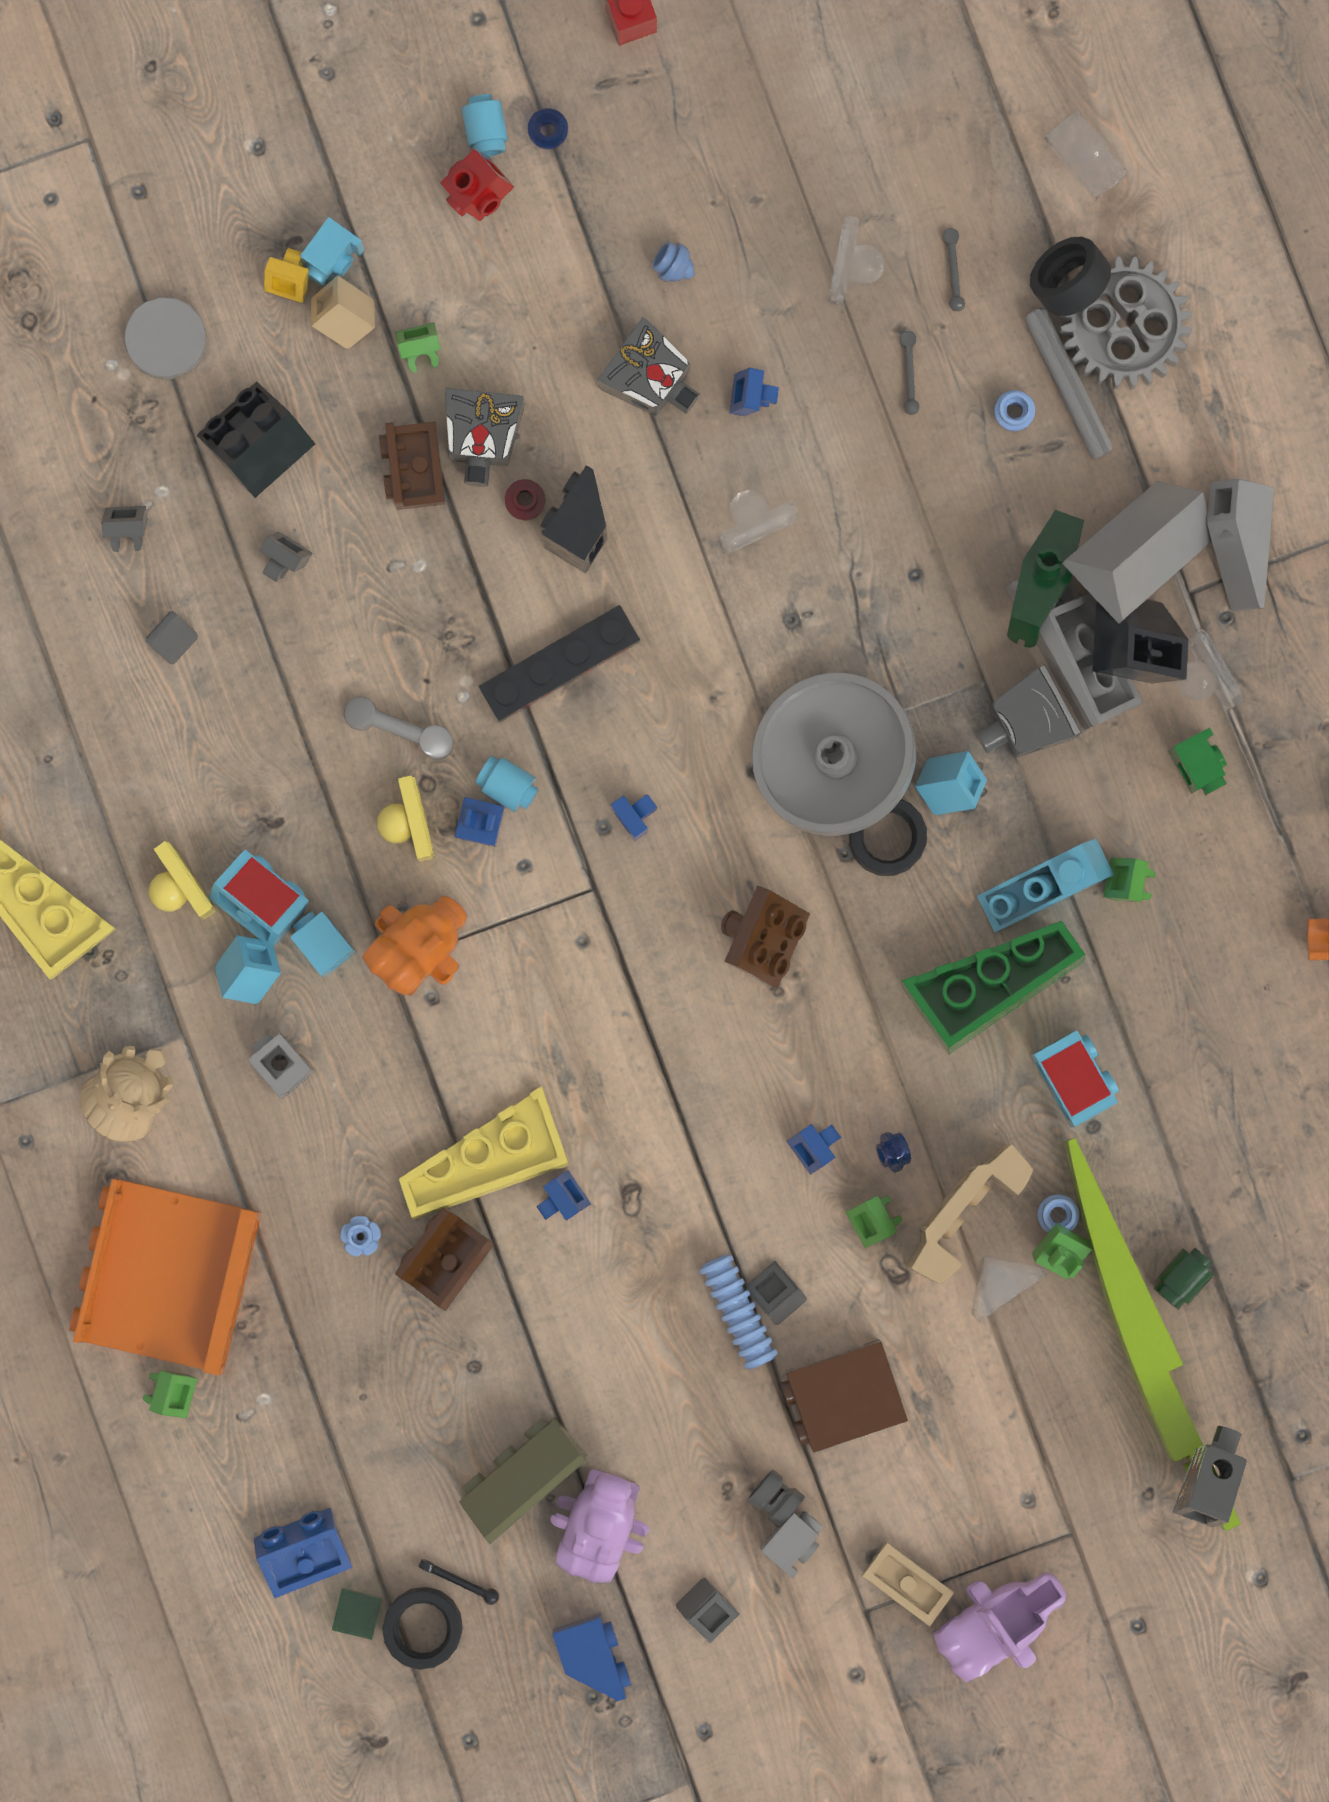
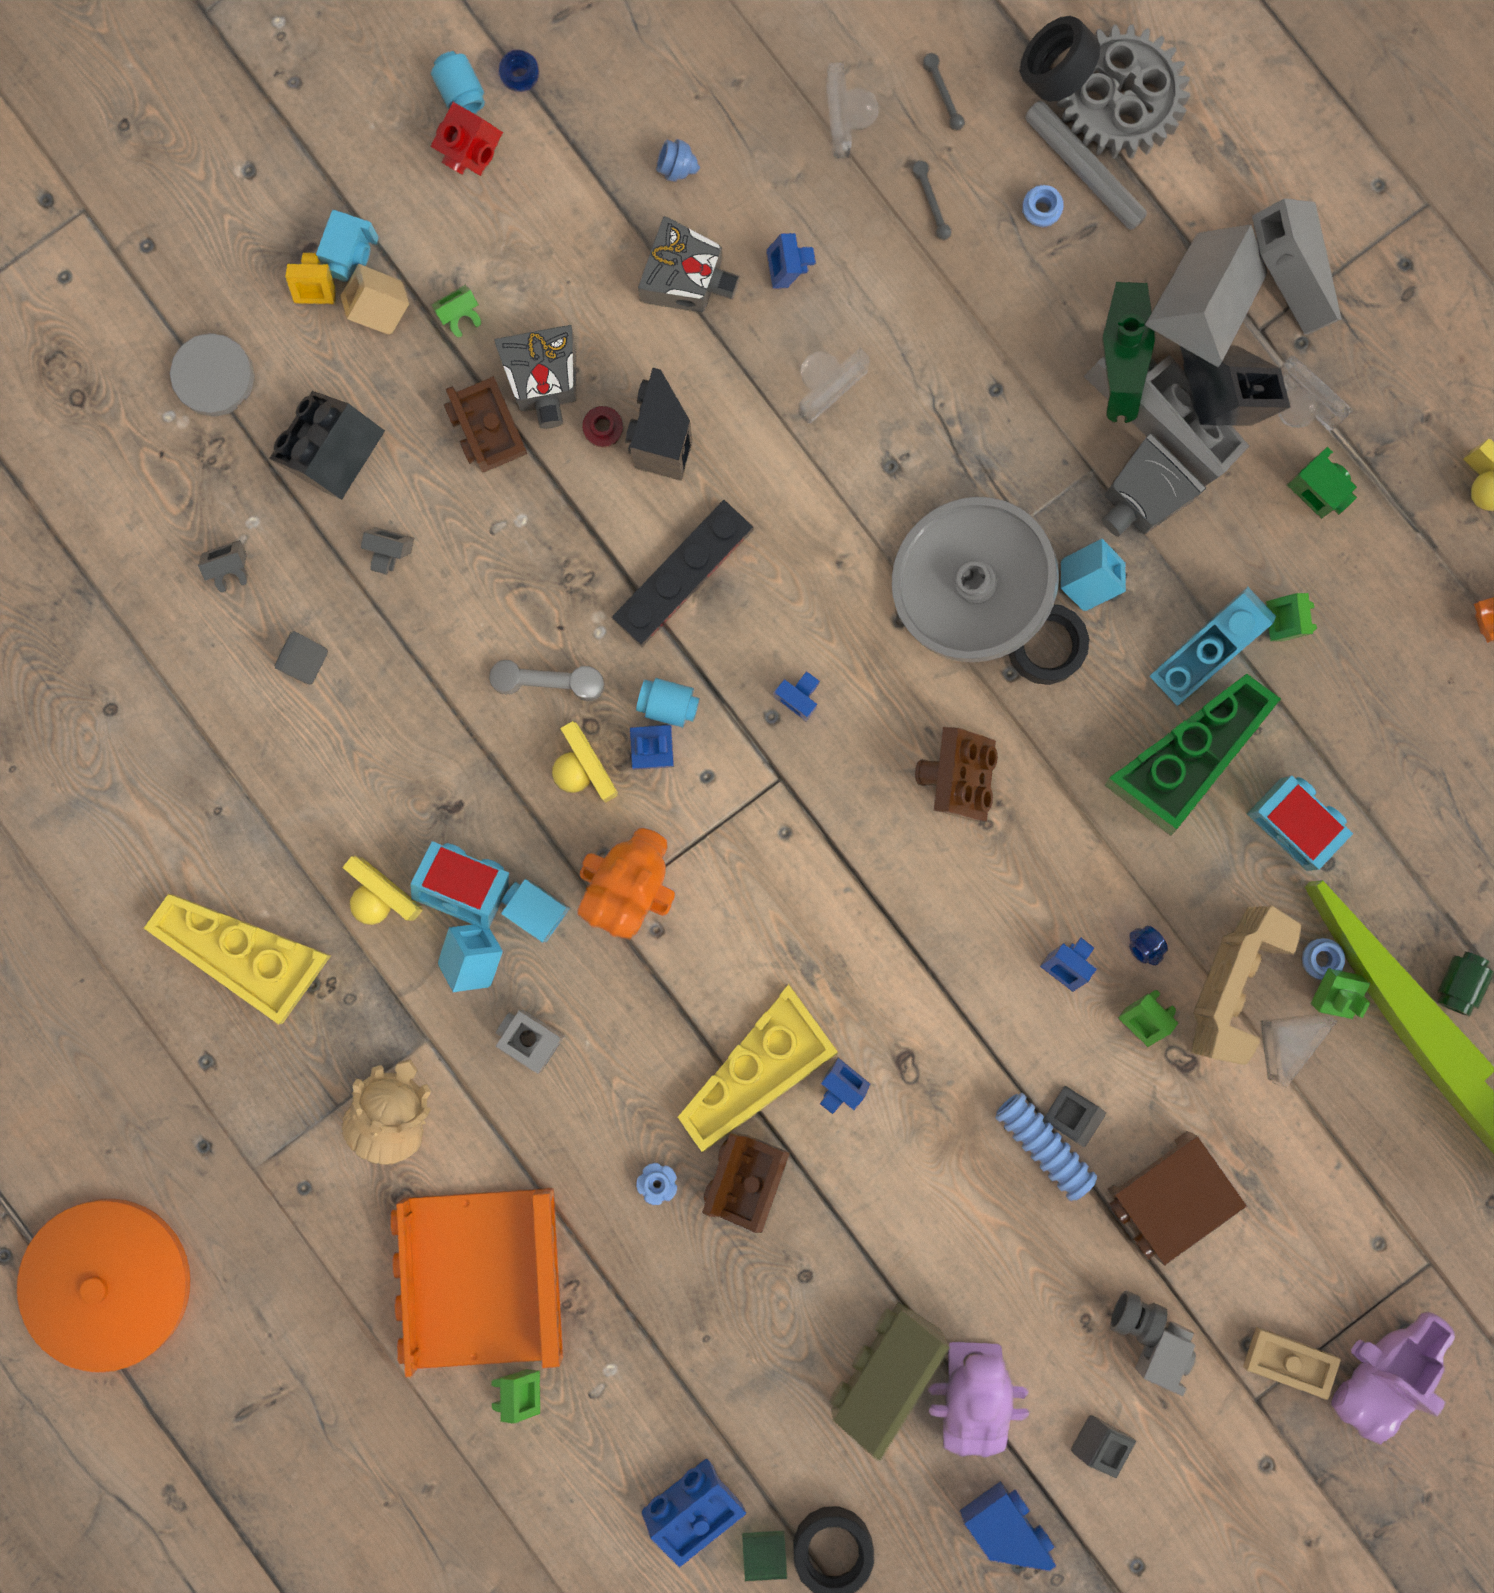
camera: 15 degrees left, 0 degrees up
(489, 1596) = (888, 1498): black hinge -> none

